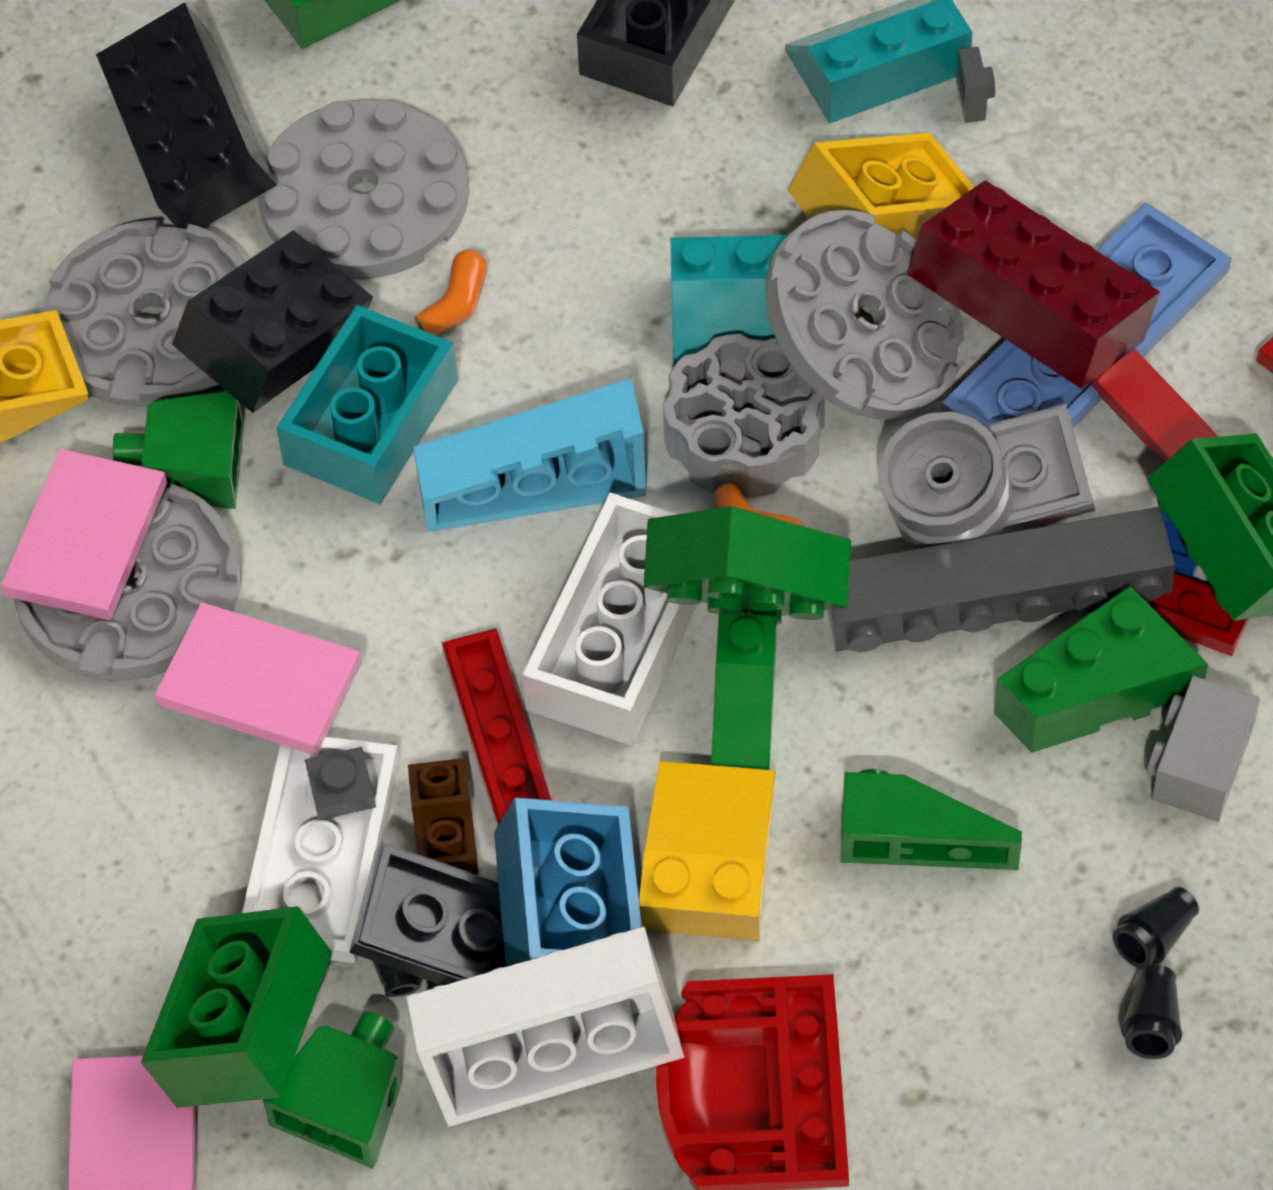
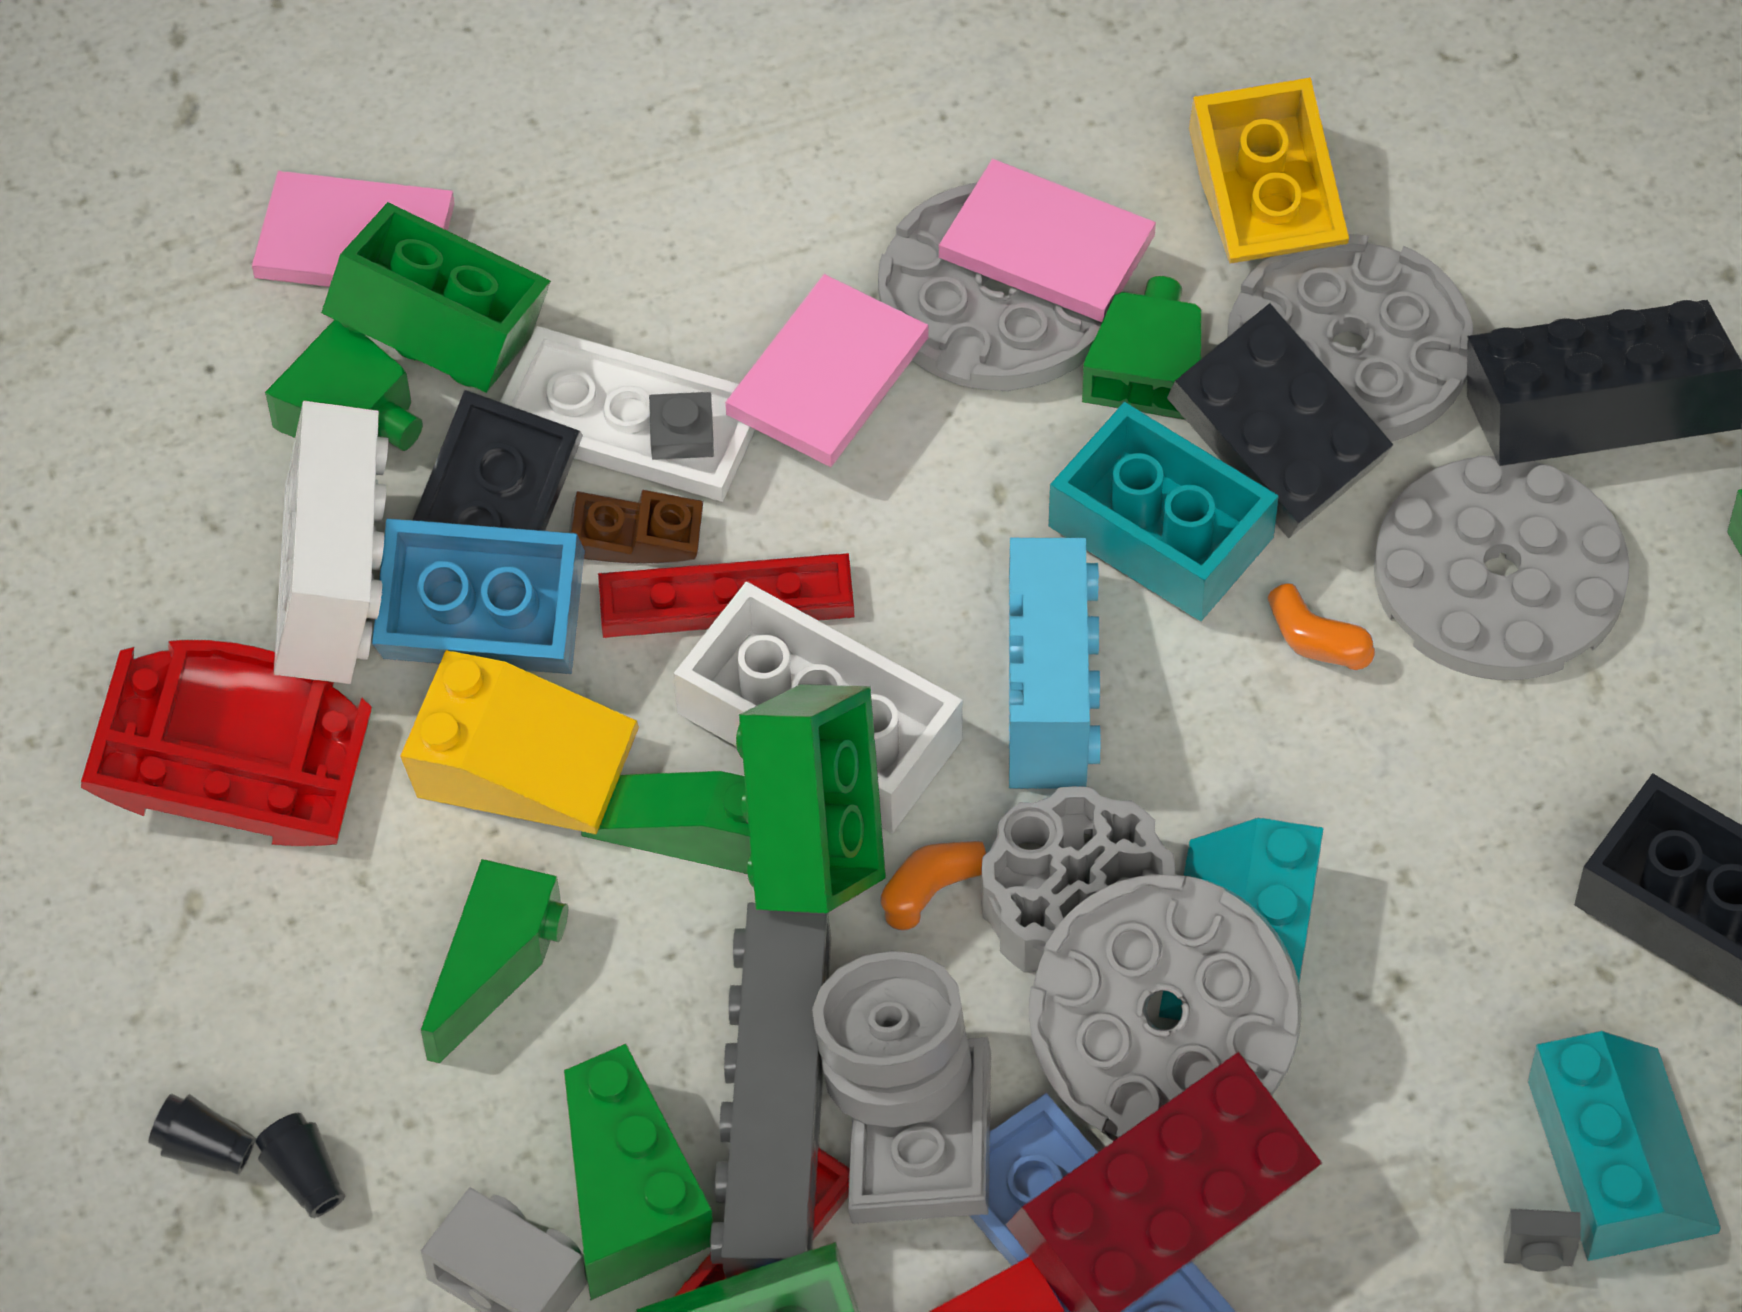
camera: 100 degrees right, 0 degrees up
(891, 177) = (1385, 1107): yellow slope -> none

